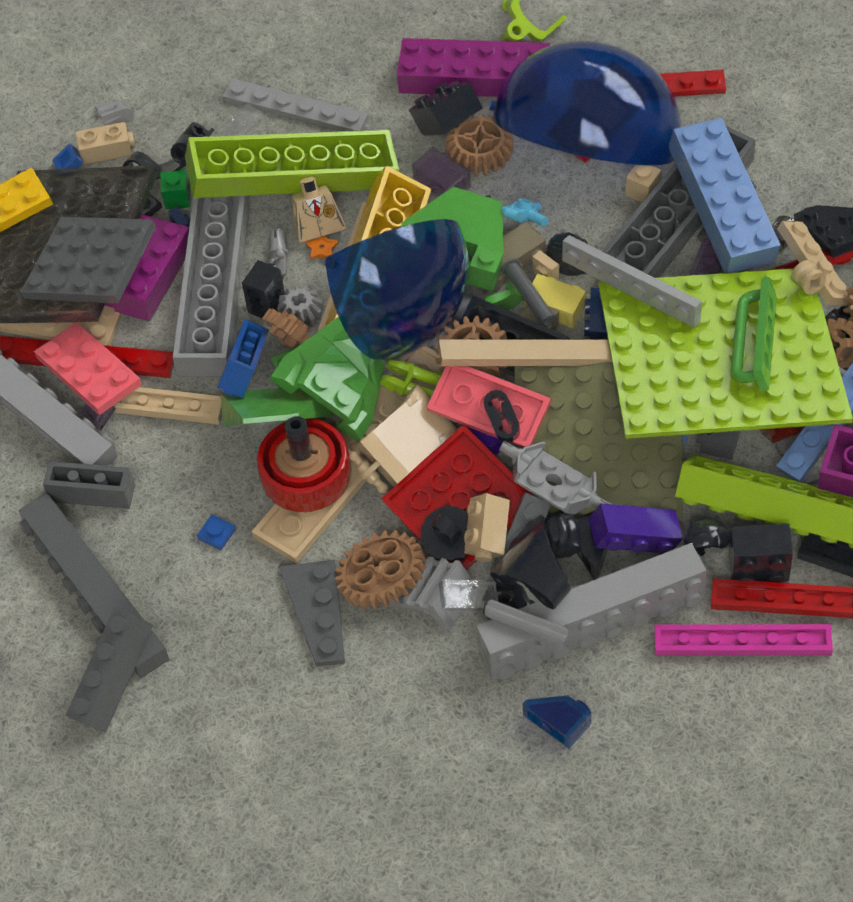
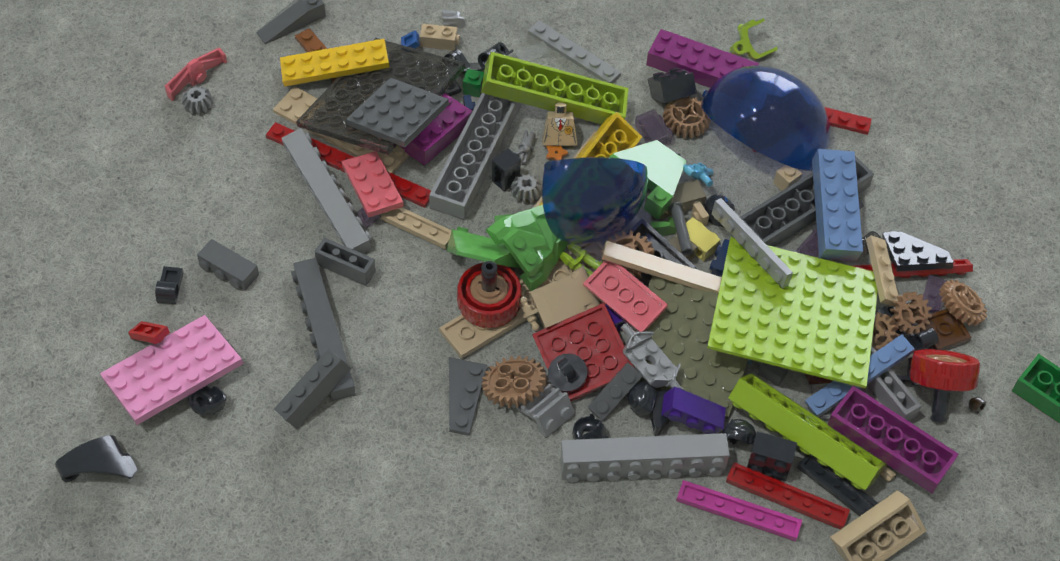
camera: 10 degrees right, 0 degrees up
(216, 532) = (416, 320): blue plate -> none
(243, 359) = (474, 211): blue brick -> none
(286, 328) = (511, 199): medium nougat gear -> none
(466, 594) = (565, 418): clear plate -> none
(486, 527) = (593, 376): tan brick -> none
(508, 414) = (626, 305): black beam -> none
(526, 622) = (595, 449): light grey axle -> none
(534, 565) = (614, 413): black panel -> none
(559, 717) = (596, 520): clear blue slope -> none
(764, 336) = (827, 309): bright green piece -> none
(808, 277) = (874, 279): tan wheel -> none

